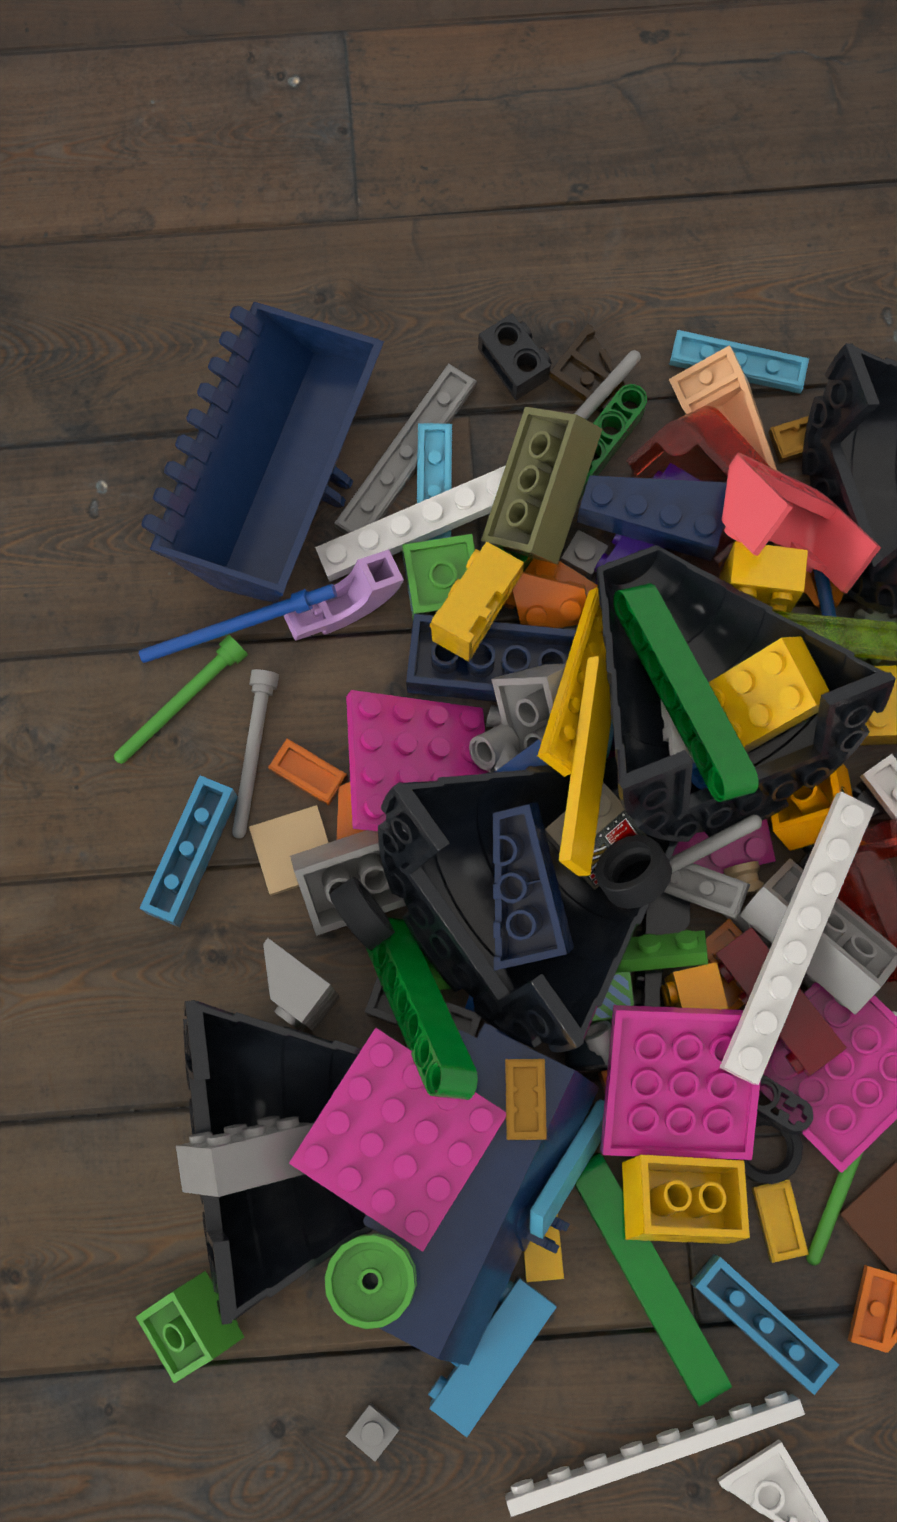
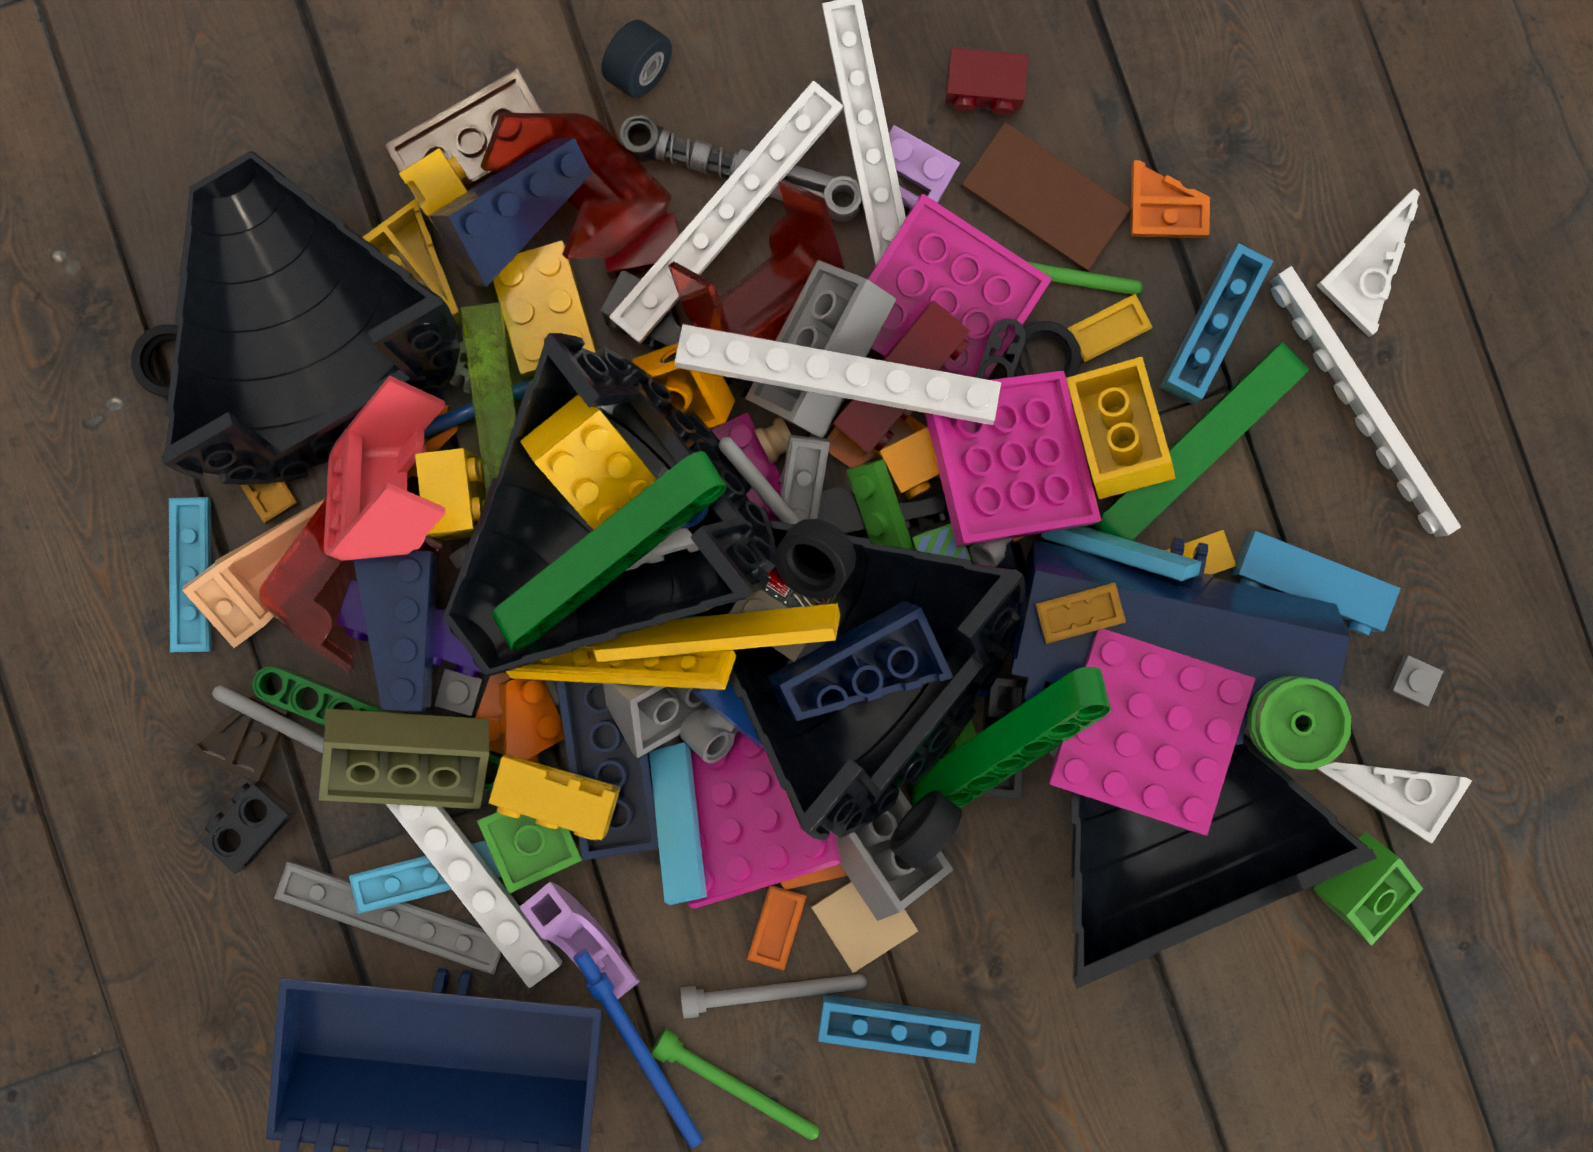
camera: 110 degrees left, 10 degrees up
(241, 1156) = (1204, 884): light grey brick -> none
(262, 1394) = (1410, 798): none -> white wing
(298, 991) = (1019, 877): light grey slope -> none
(424, 700) = (677, 824): none -> medium azure tile

